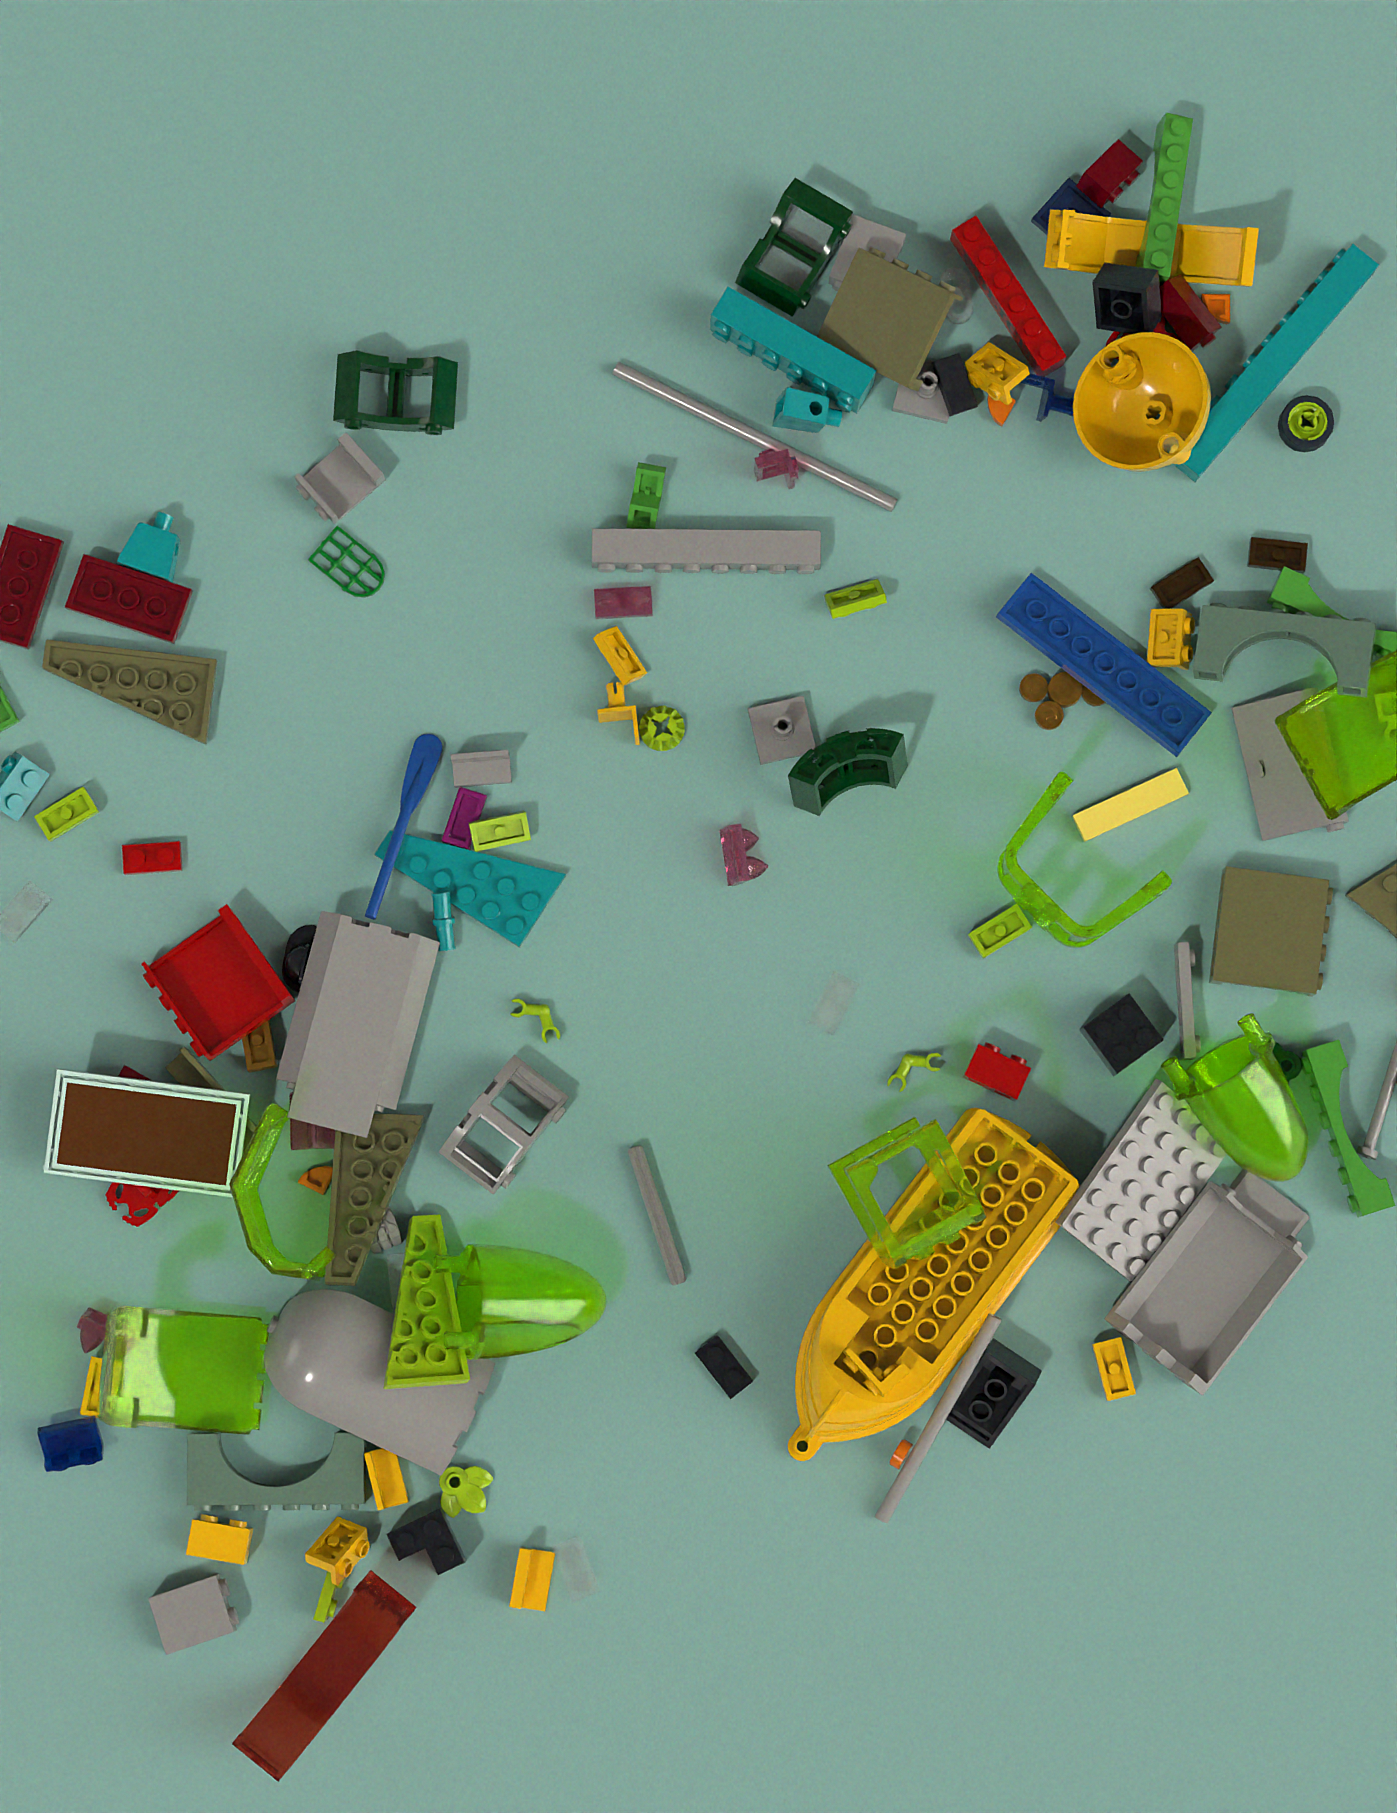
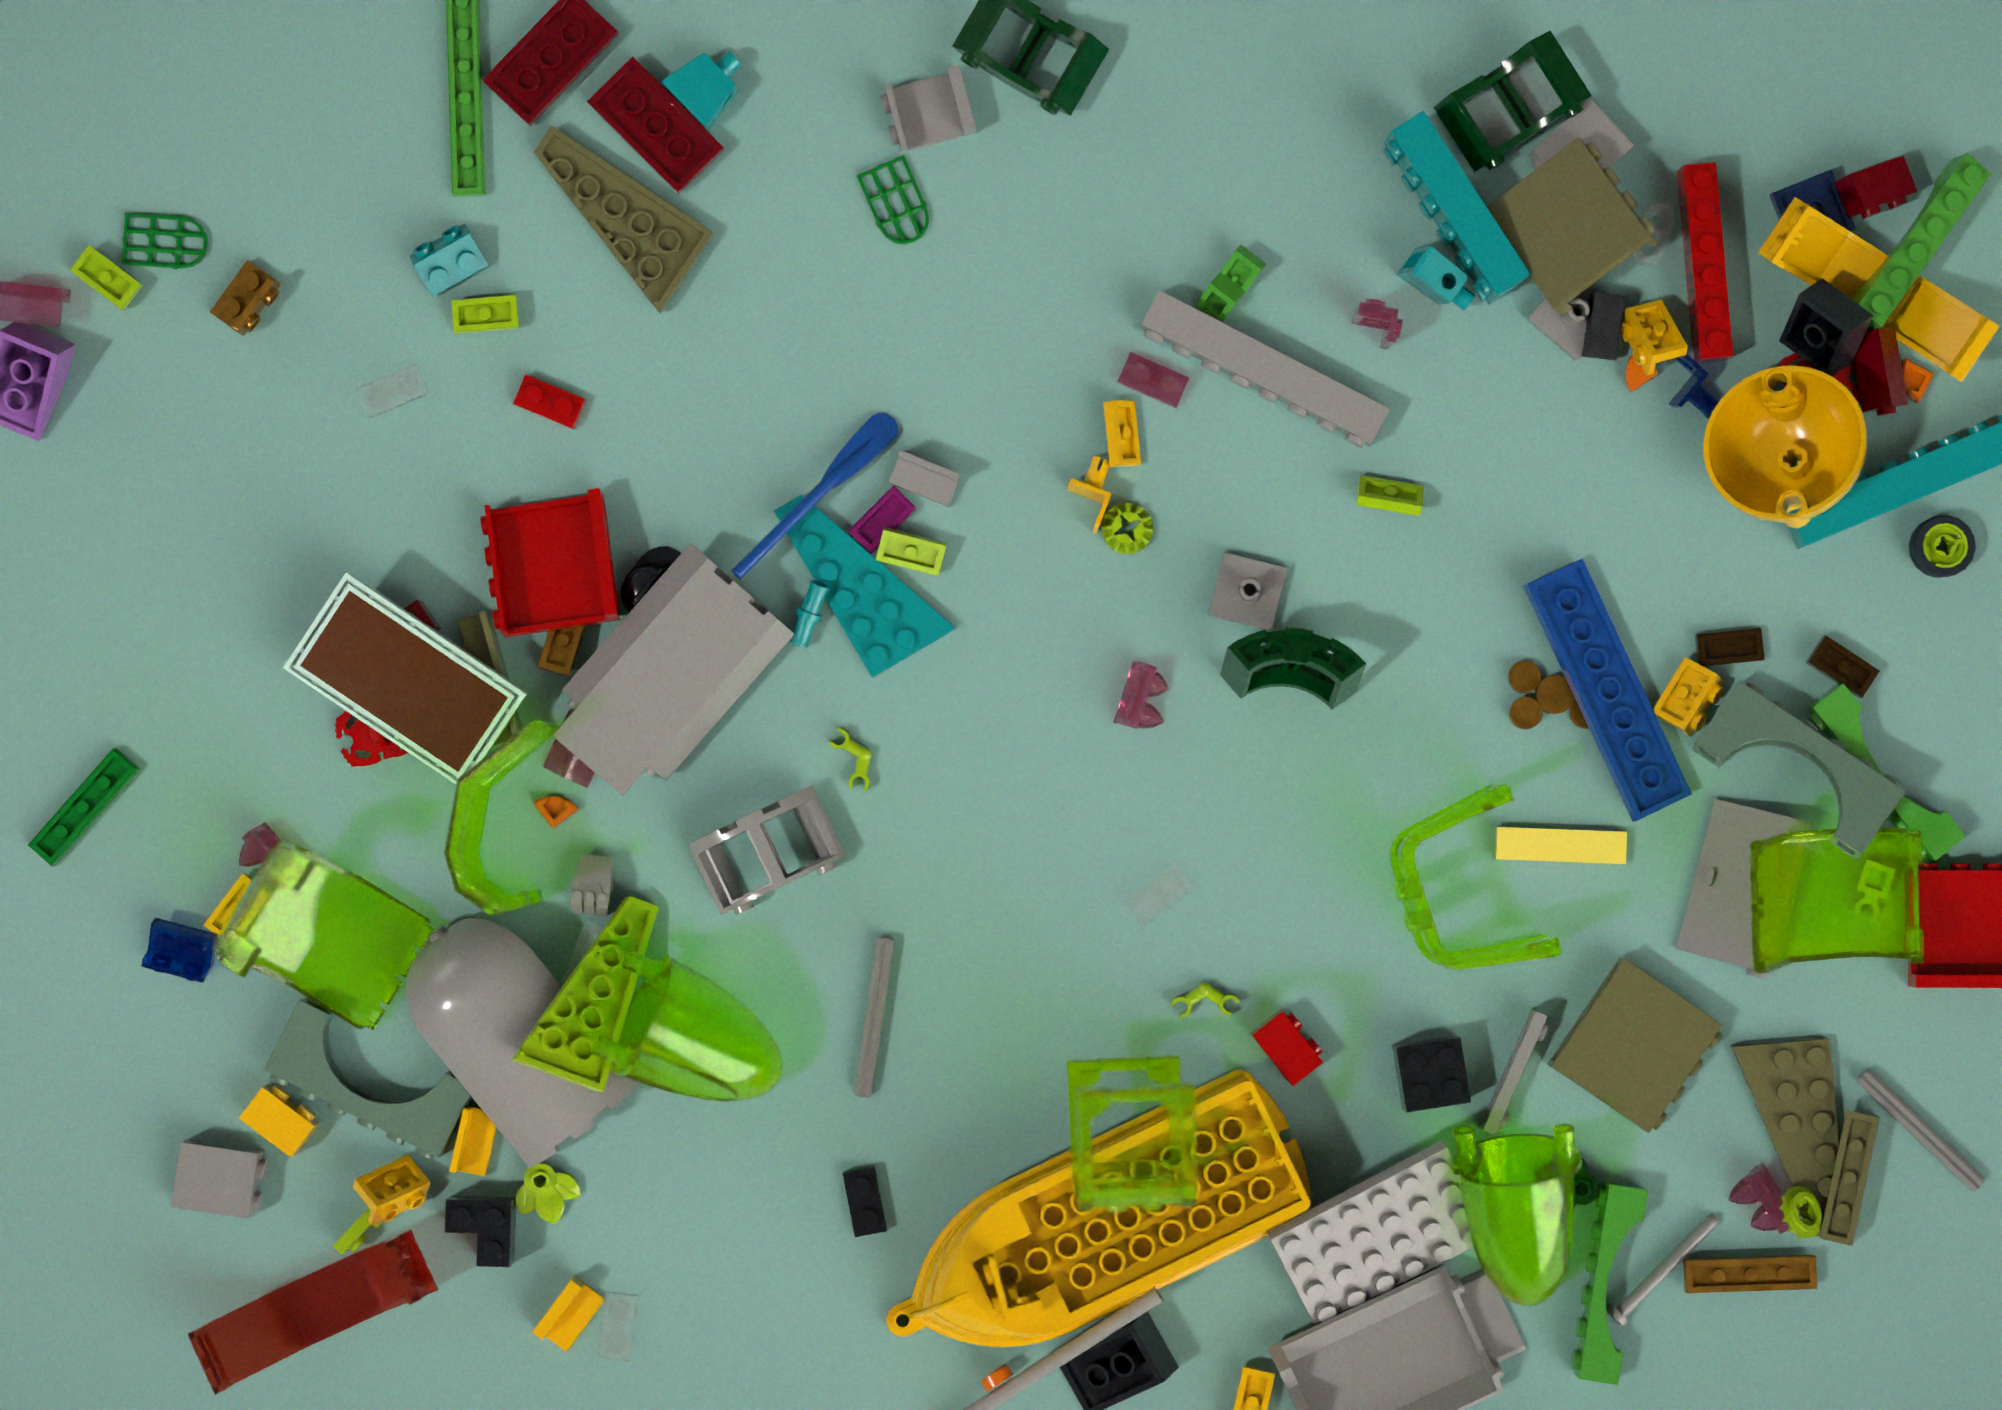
camera: 30 degrees right, 5 degrees up
(362, 1188) = (592, 844): olive wing -> none
(753, 436) = (1372, 275): light grey piece -> none
(999, 931) = (1363, 906): lime plate -> none

